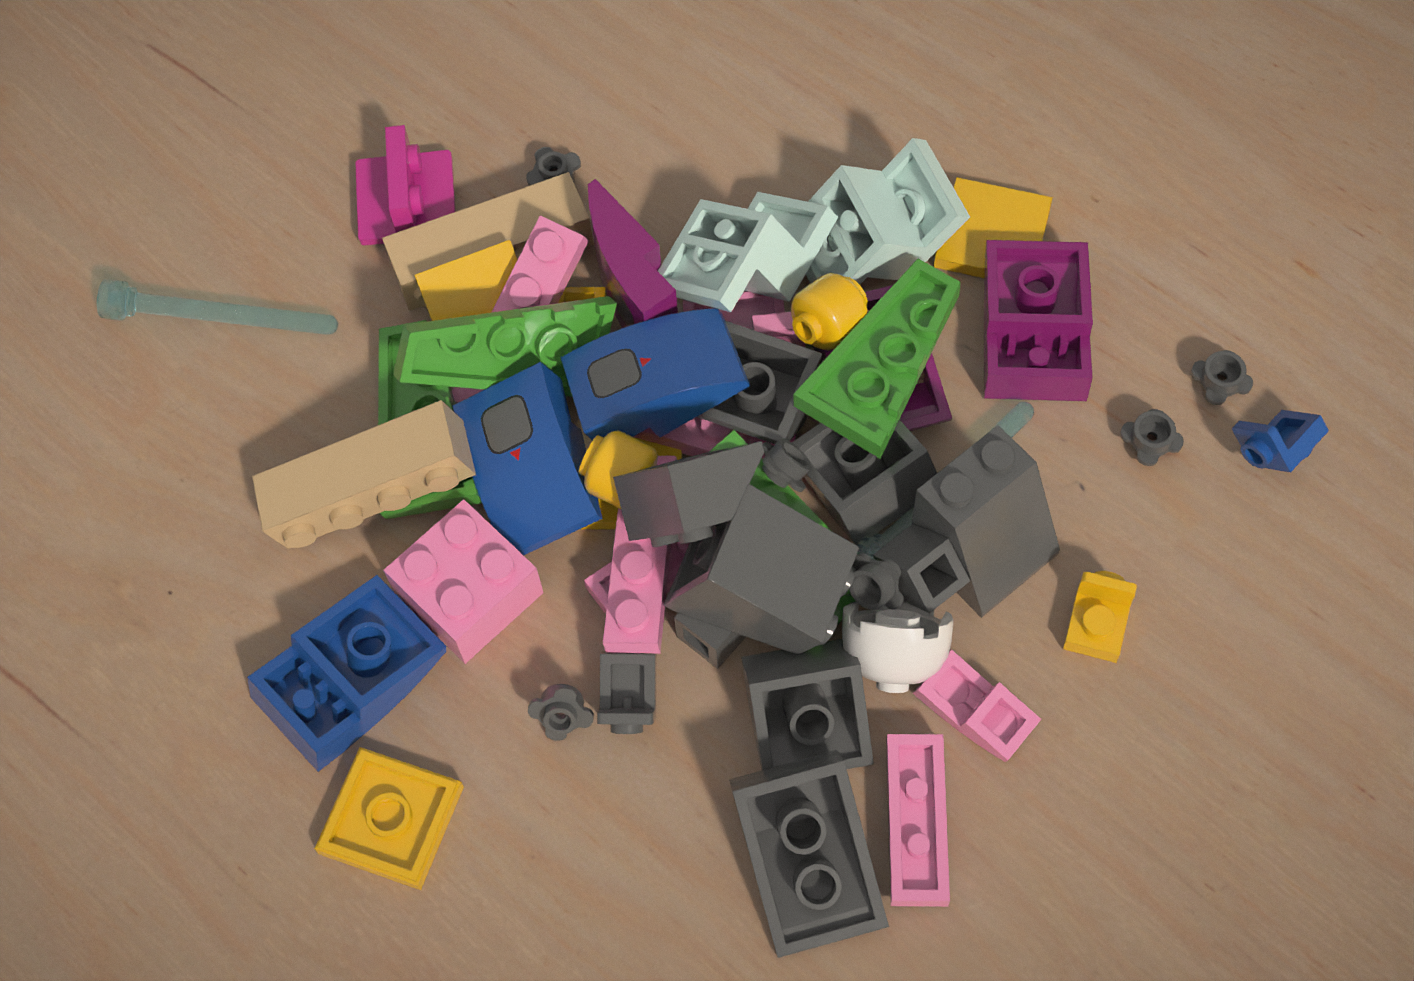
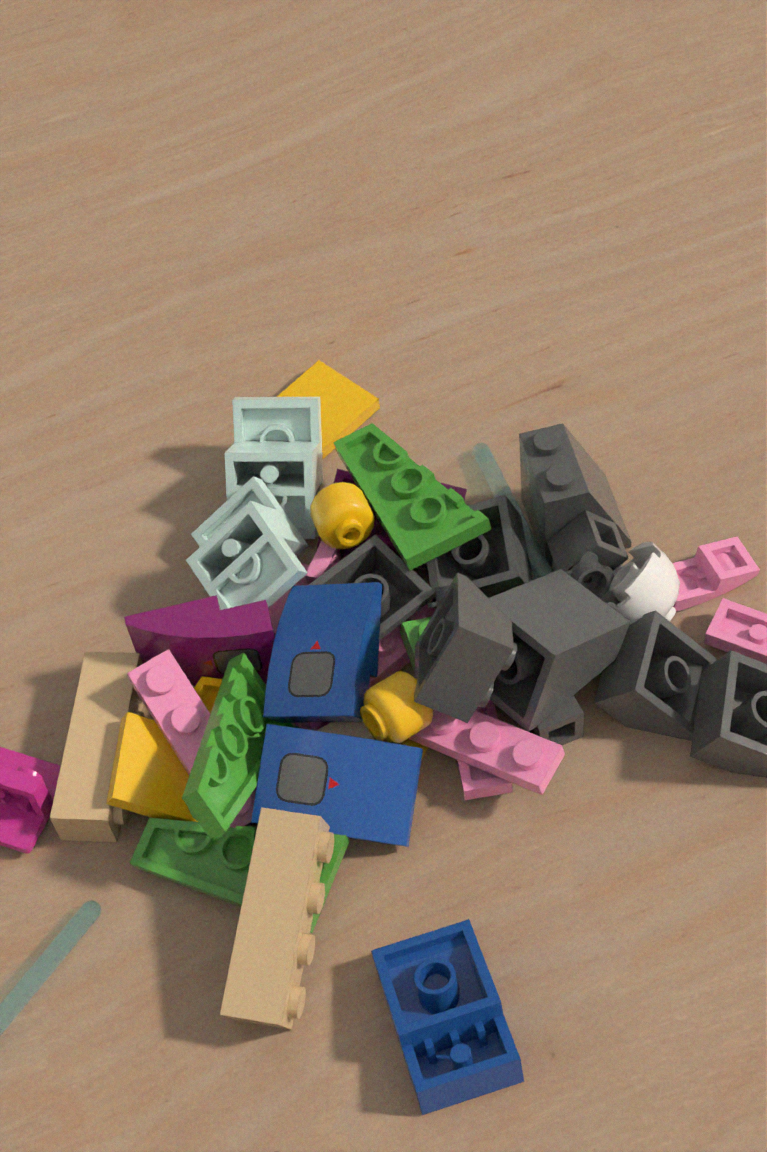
camera: 60 degrees left, 10 degrees down
(389, 818) = (598, 1035): yellow tile -> none
(464, 581) = (415, 879): bright pink brick -> none
(548, 159) = (65, 685): dark grey plate -> none
(560, 699) = (570, 855): dark grey plate -> none
(627, 691) = (580, 799): dark grey bracket -> none
(1037, 320) = (417, 407): magenta slope -> none
(1099, 615) = (671, 471): yellow bracket -> none
(1157, 424) = (547, 383): dark grey plate -> none
(1226, 364) = (524, 326): dark grey plate -> none
(1282, 442) = (596, 311): blue bracket -> none

